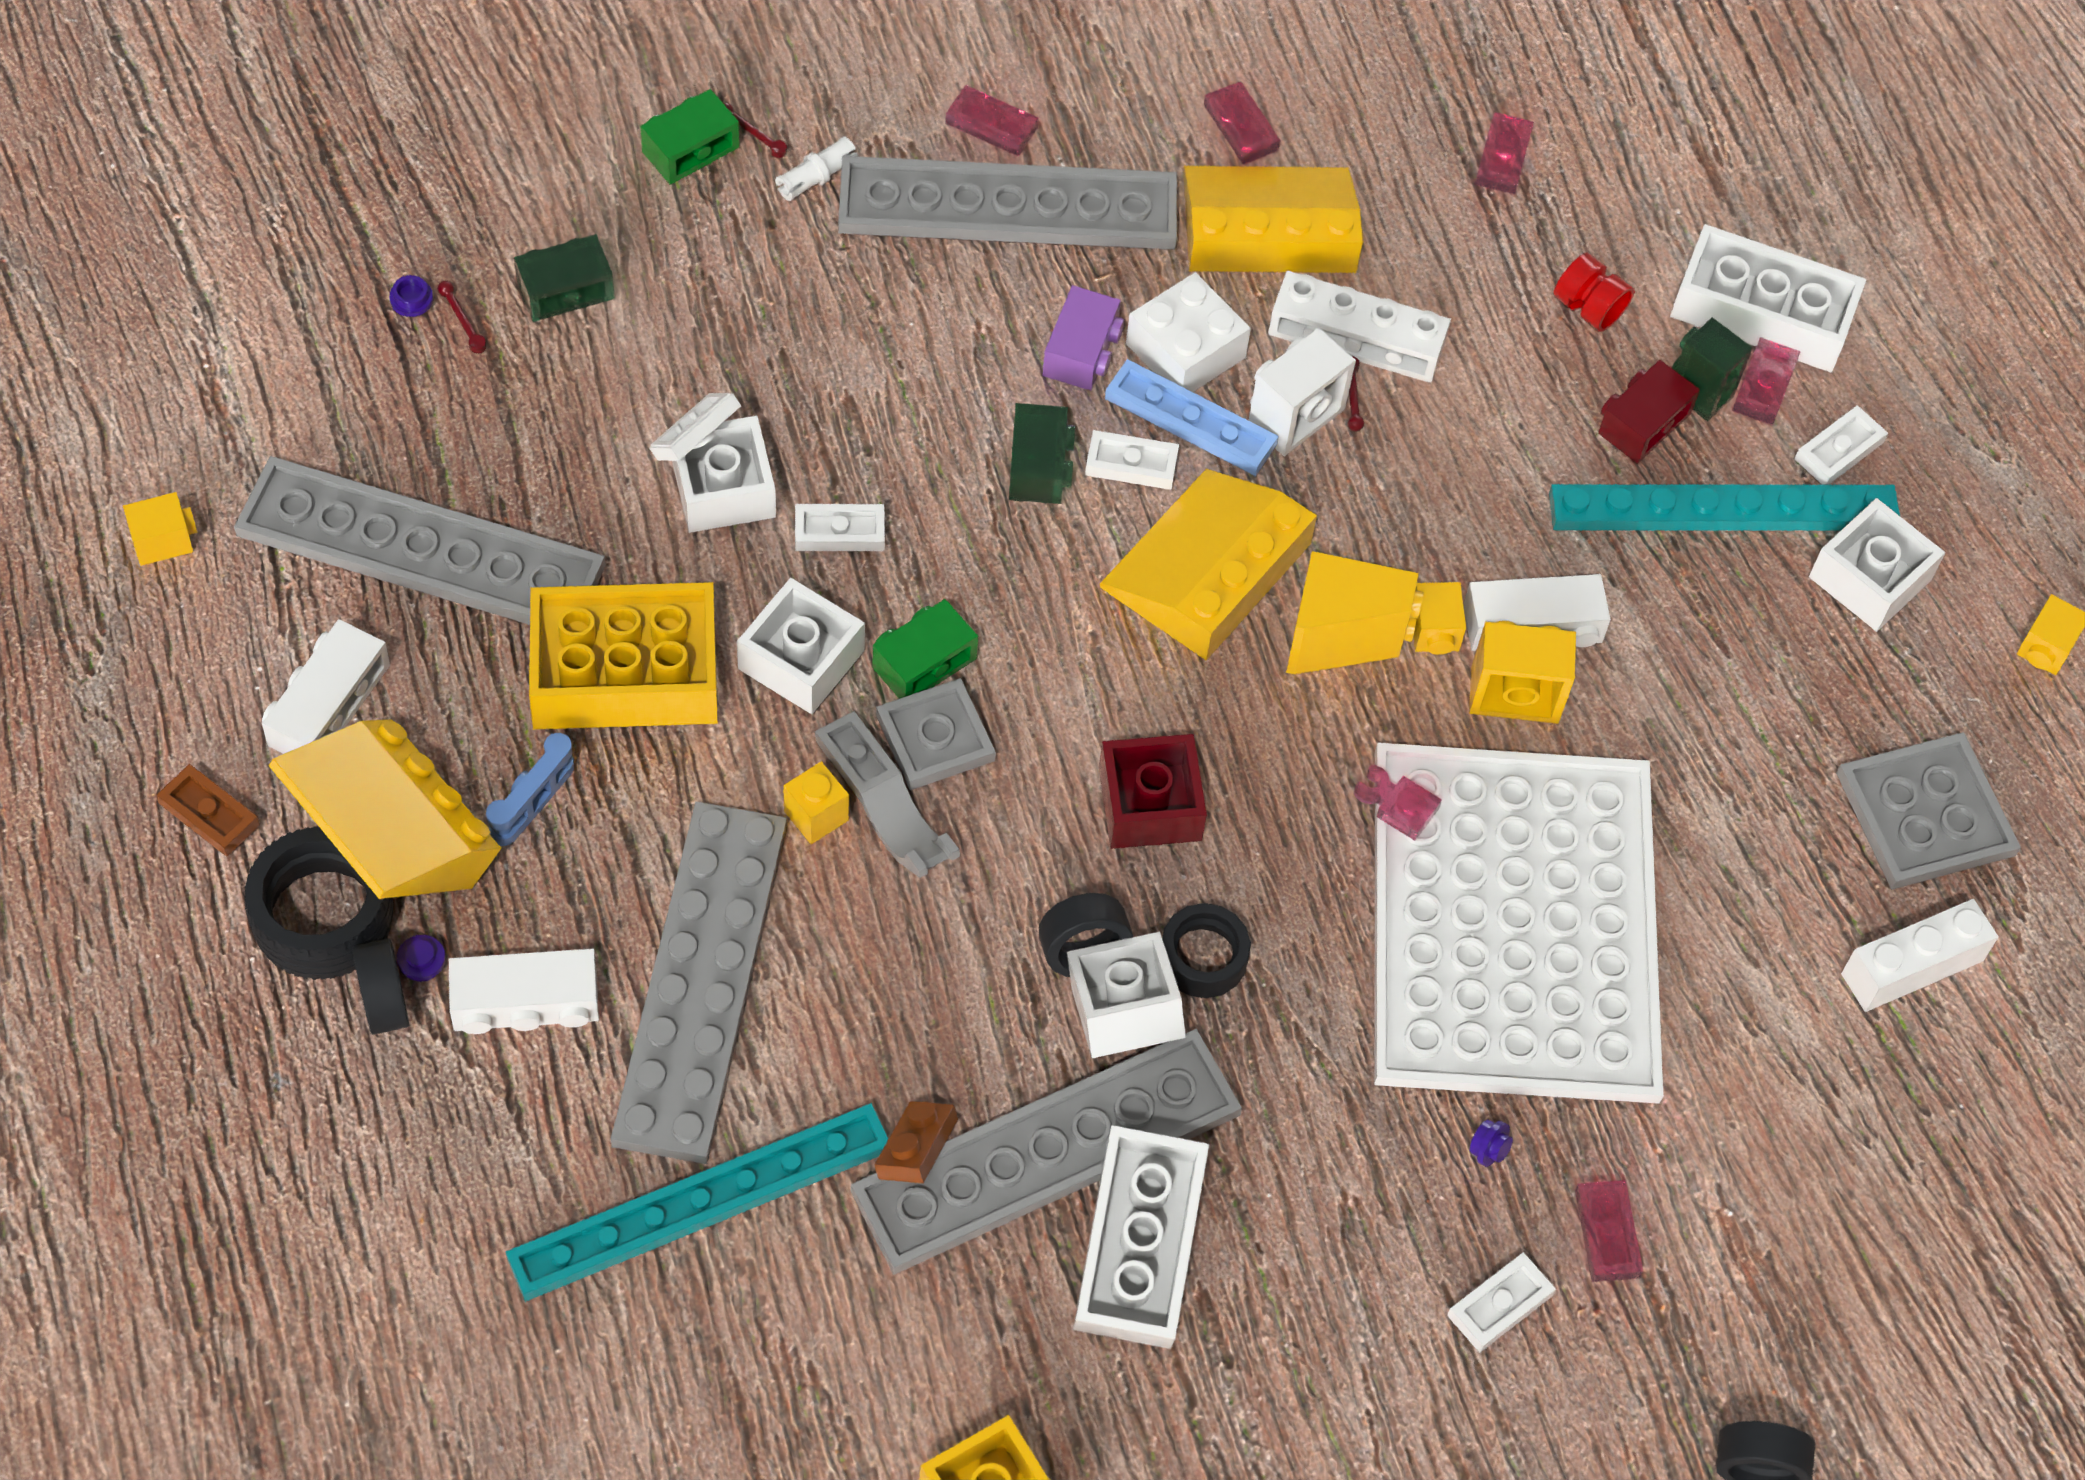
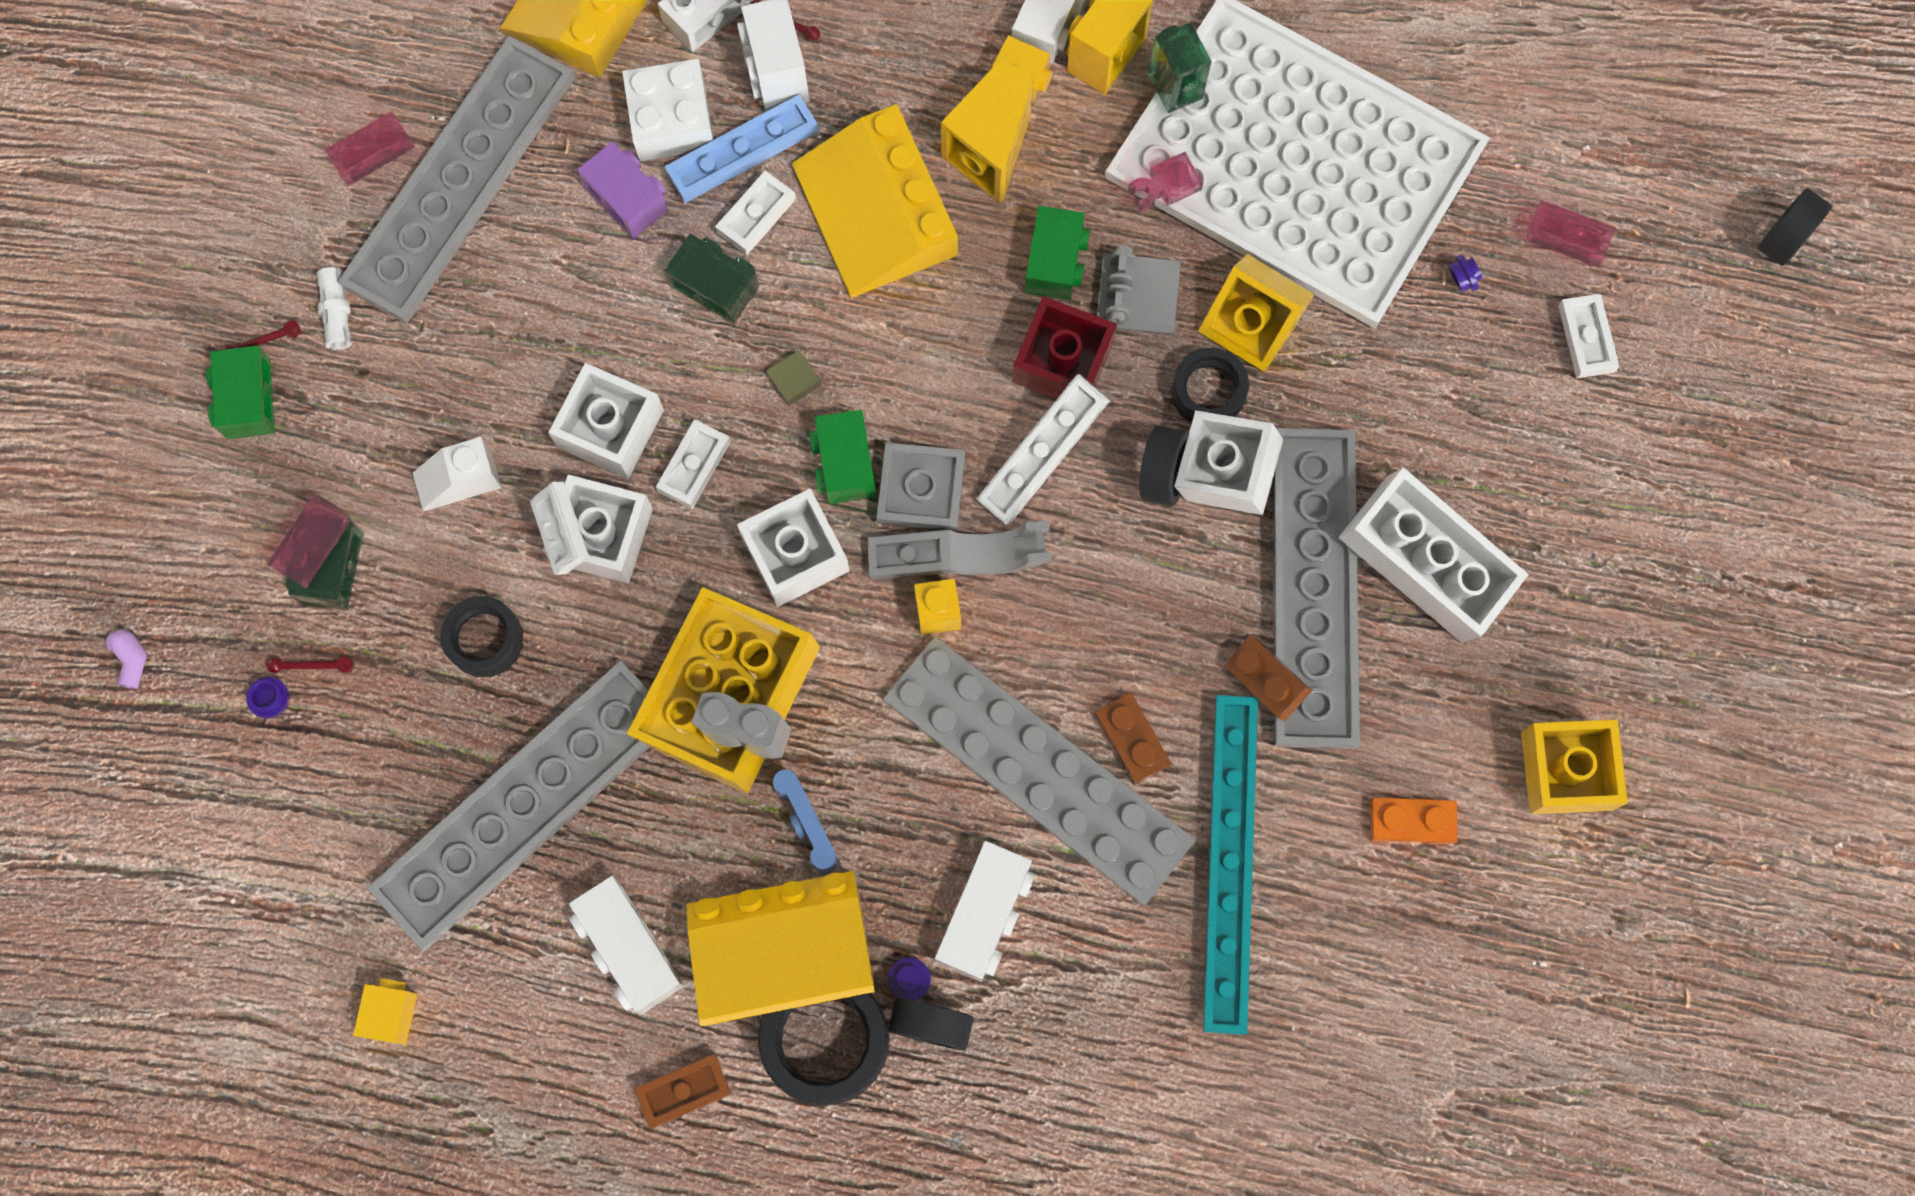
camera: 55 degrees left, 15 degrees up
(392, 176) = (131, 654): none -> lavender arm
(564, 407) = (460, 615): none -> black tyre
(571, 247) = (309, 542): none -> clear pink plate
(584, 664) = (747, 725): none -> light grey brick
(714, 341) = (456, 474): none -> white slope
(783, 1052) = (1132, 738): none -> dark orange plate
(835, 430) = (606, 420): none -> white brick
(846, 1367) = (1413, 821): none -> orange plate
(982, 573) = (793, 378): none -> olive tile
(1035, 816) = (1043, 449): none -> white tile
(1259, 738) = (1055, 252): none -> green brick
(1267, 839) = (1139, 292): none -> light grey hinge
(1316, 954) = (1255, 312): none -> yellow slope
(1521, 742) = (1179, 66): none -> clear green brick

